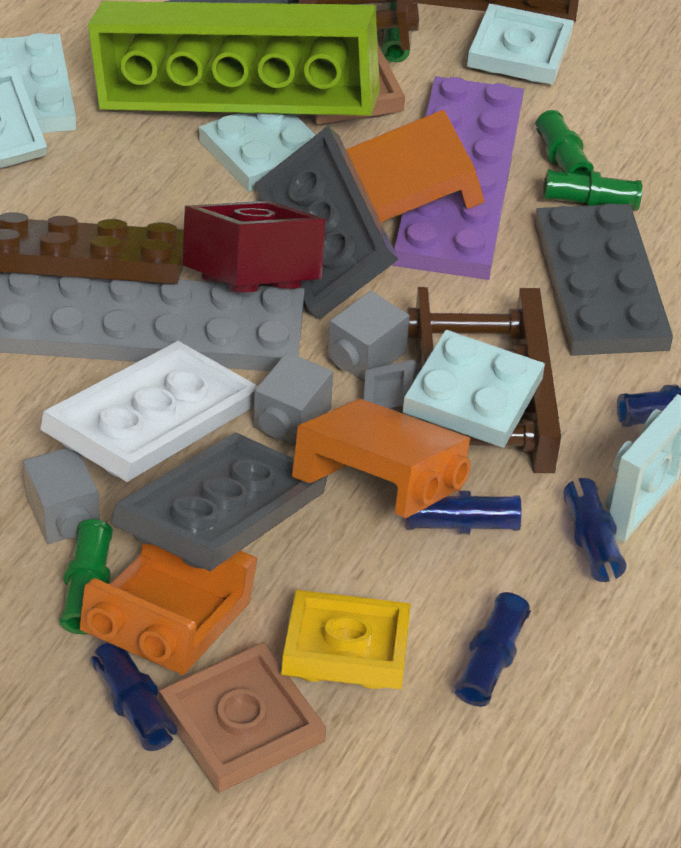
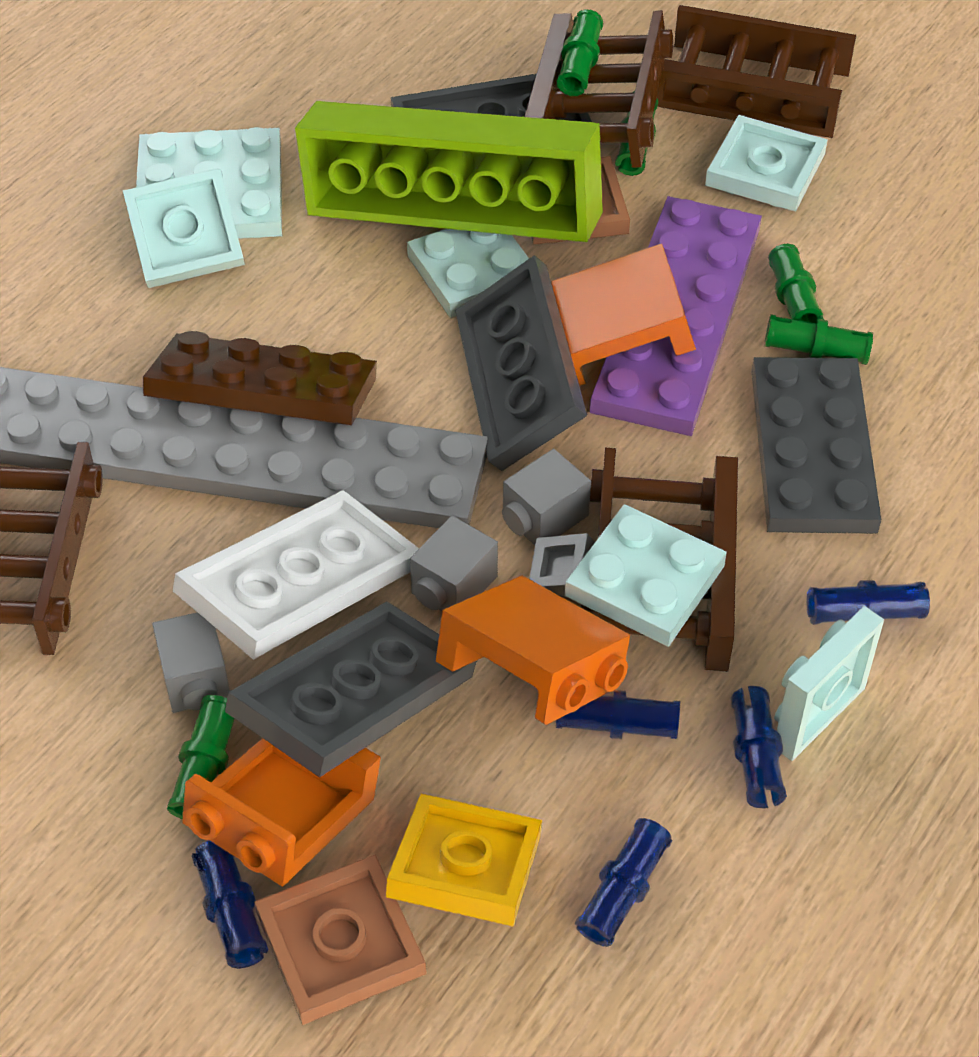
camera: 10 degrees right, 5 degrees up
(253, 244) = (435, 387): dark red brick -> none

